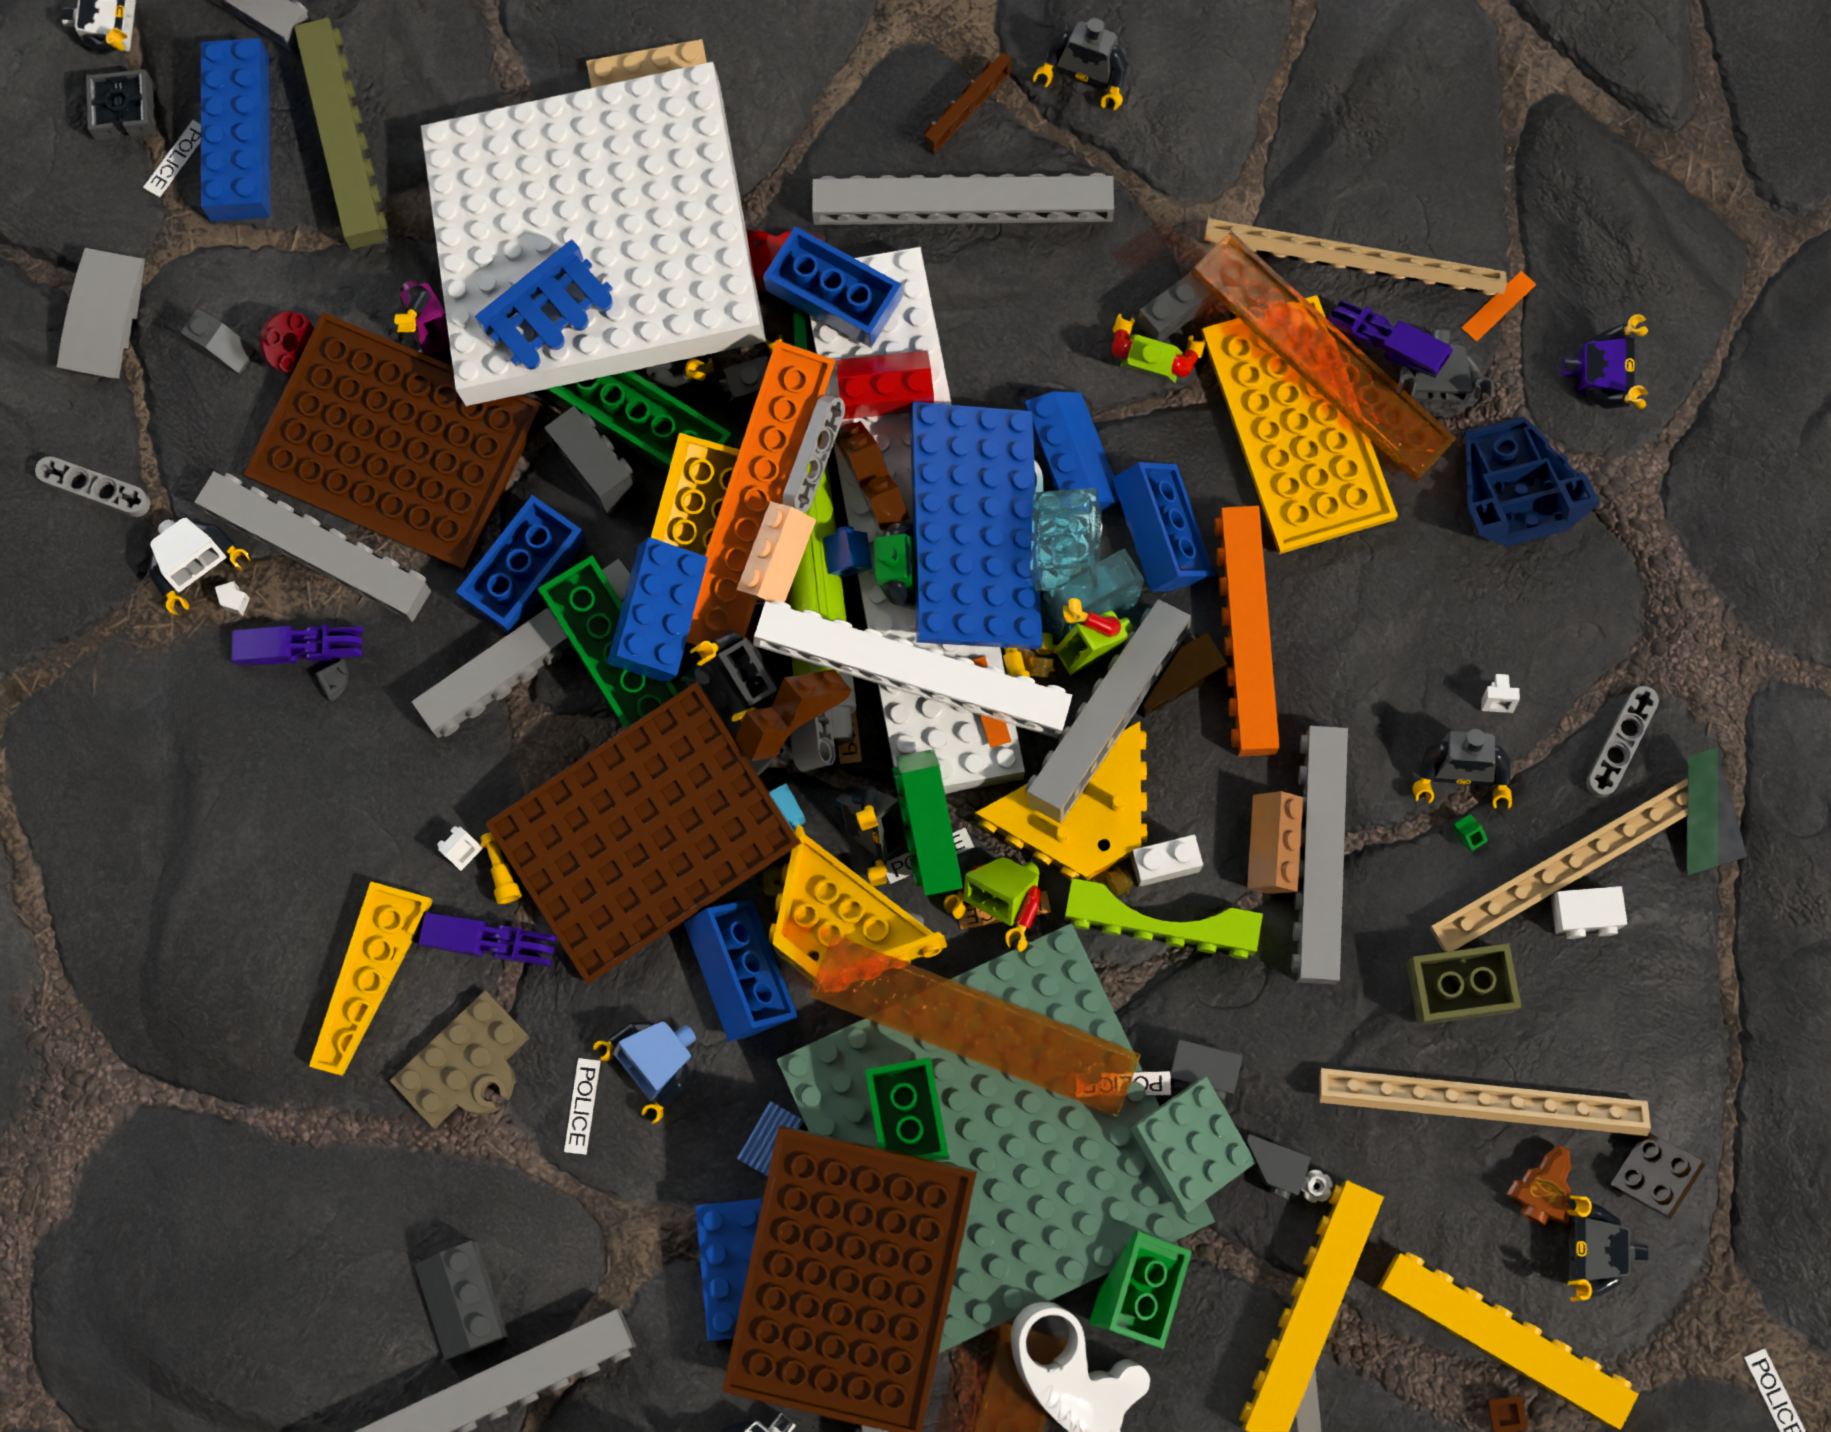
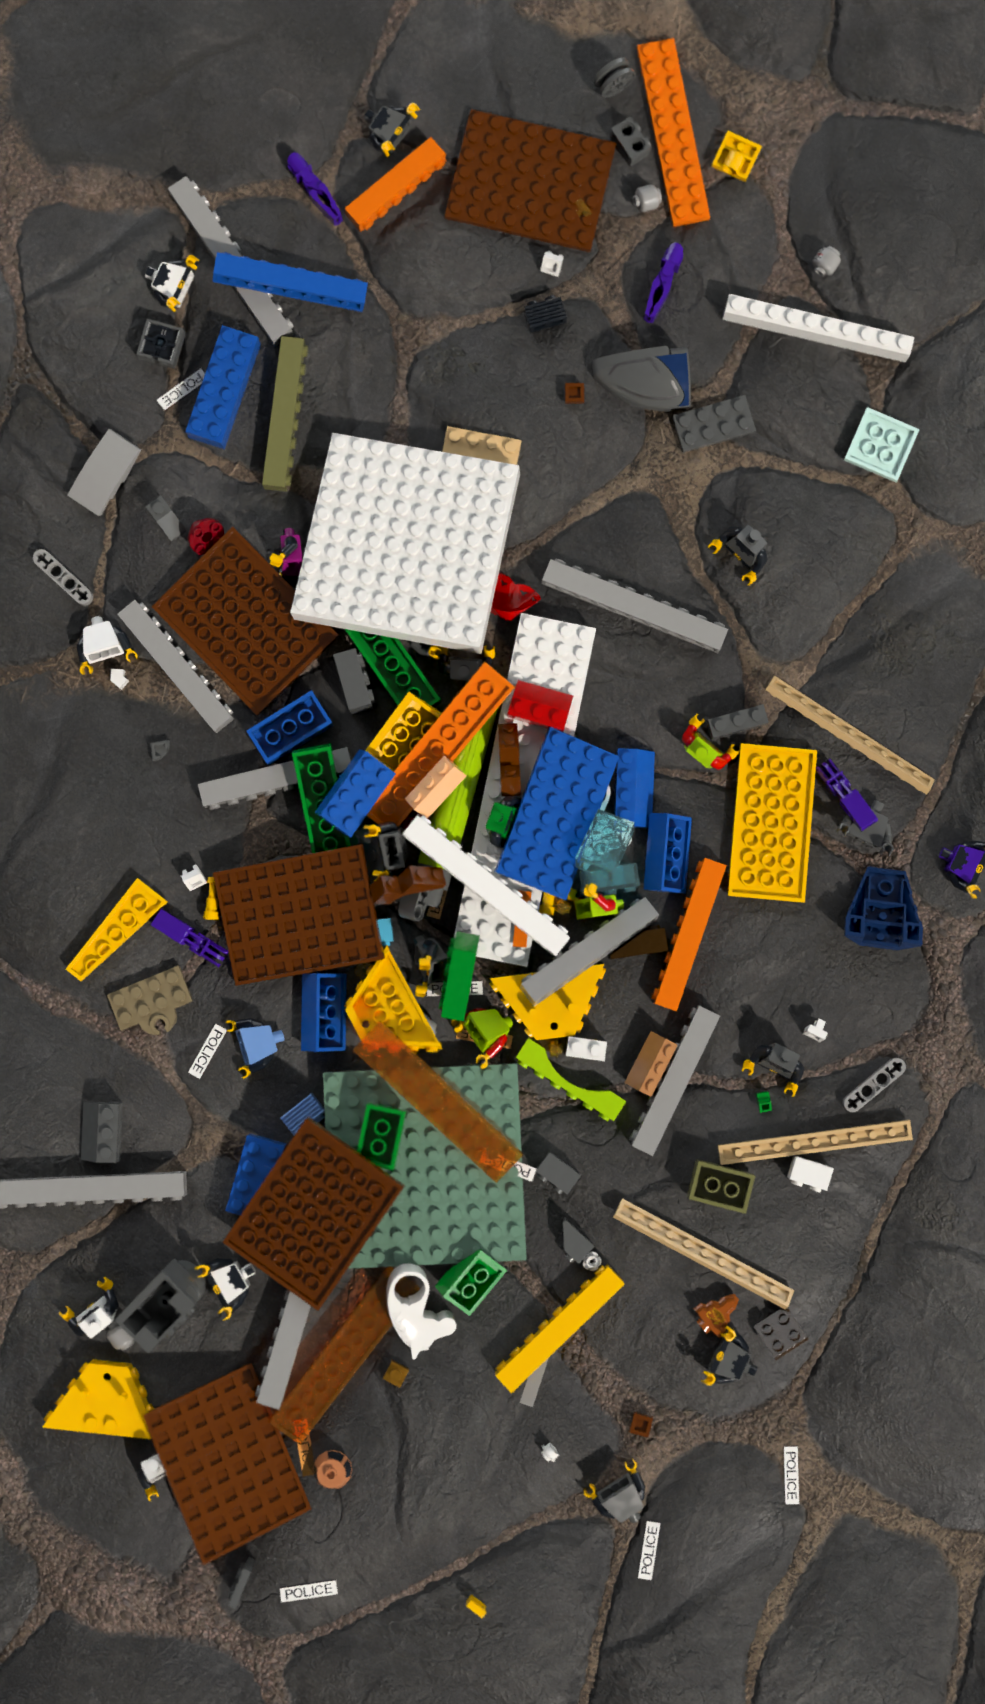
camera: 20 degrees right, 10 degrees up
(286, 645) = (137, 719): dark purple arm -> none
(544, 280) = (350, 584): blue fence -> none
(800, 328) = (507, 647): dark green tile -> none
(827, 412) = (467, 750): light grey beam -> none
(833, 287) = (533, 637): blue brick -> none
(847, 552) = (478, 799): blue brick -> none
(973, 96) = (668, 542): reddish brown plate -> none
(1193, 1145) = (531, 1215): sand green plate -> none
(1323, 356) = (802, 790): clear orange plate -> none
(1498, 306) = (921, 798): orange sticker -> none
(1507, 1341) = (658, 1387): yellow brick -> none
(1712, 821) = (903, 1150): dark green sticker -> none

